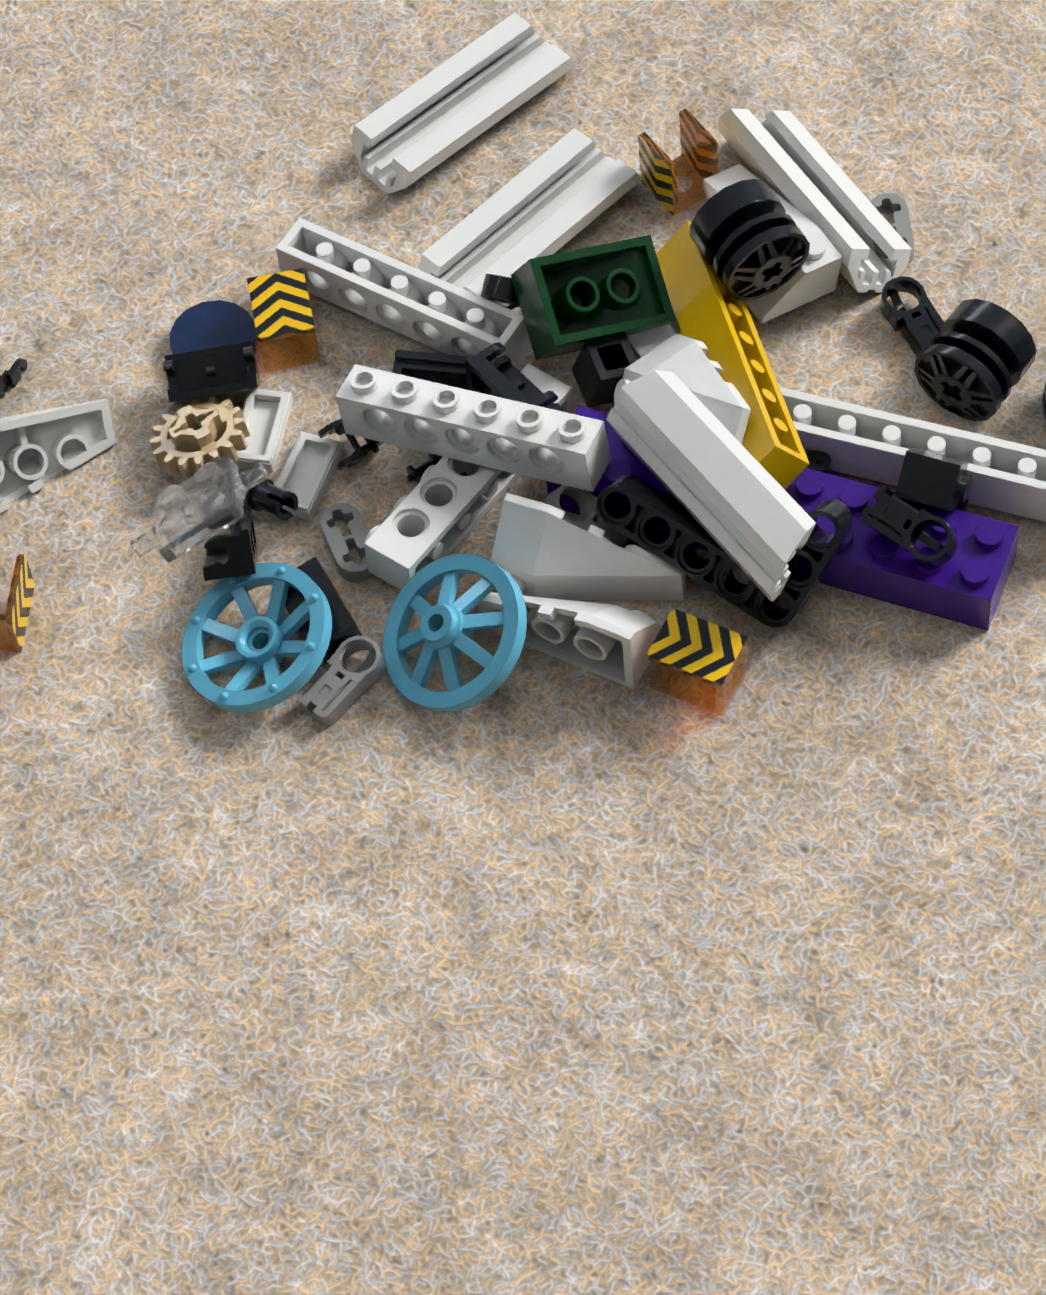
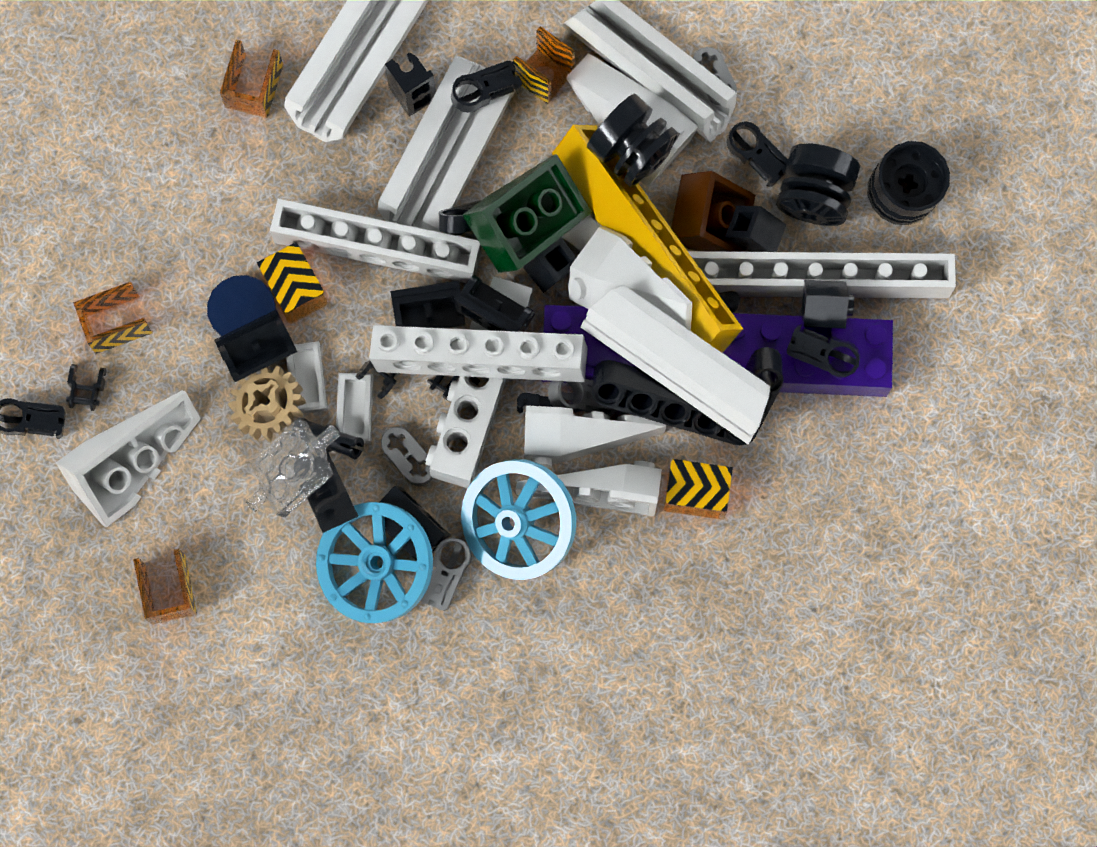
camera: 25 degrees left, 20 degrees up
(54, 287) = (104, 301): none -> clear orange piece
(337, 118) = (256, 106): none -> clear orange piece
(508, 140) = (411, 88): none -> black hinge
(603, 157) = (491, 84): none -> black piece
(834, 360) = (705, 211): none -> reddish brown slope
(881, 387) = (755, 229): none -> black brick

